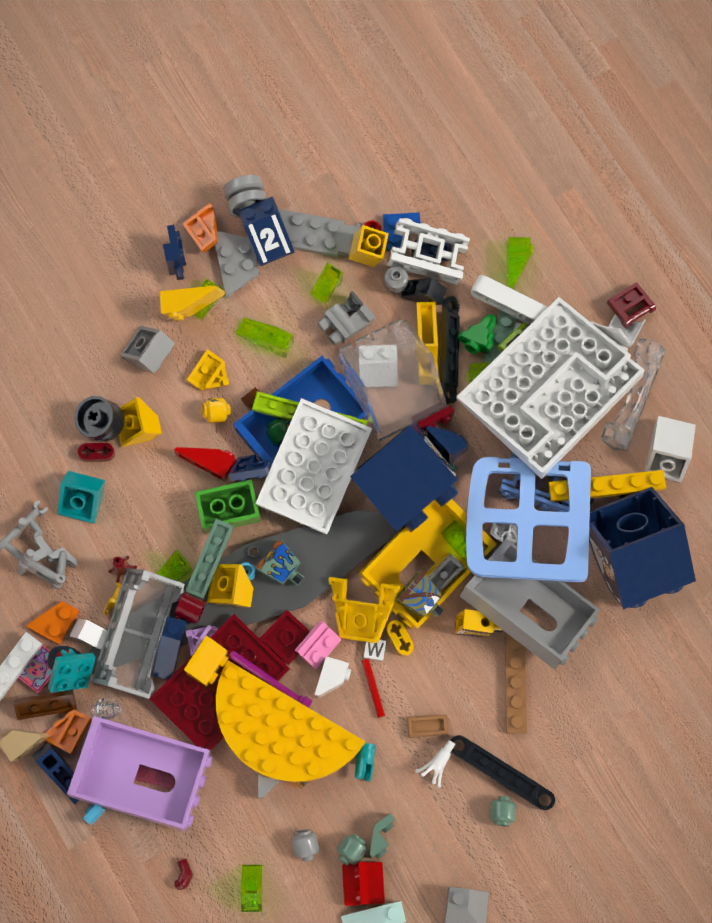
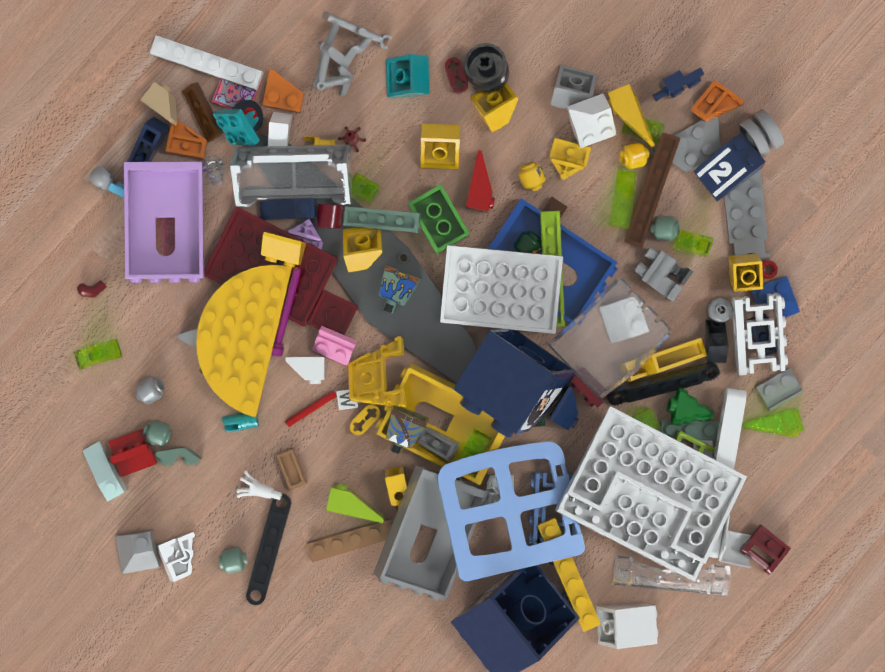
camera: 70 degrees right, 15 degrees up
(74, 827) = (101, 177): none -> light grey piece
(158, 486) = (440, 146): none -> yellow slope
(182, 338) = (591, 120): none -> white slope
(228, 313) = (634, 156): none -> yellow head
(249, 467) = (479, 227): dark blue plate -> none
(251, 570) = (386, 260): medium azure plate -> none
(264, 305) = (652, 189): none -> reddish brown plate
(304, 305) = (665, 228): none -> sand green head
(477, 674) = (350, 503): none -> lime slope
(483, 870) = (177, 556): none -> white slope
(485, 251) = (779, 389): none -> light grey plate

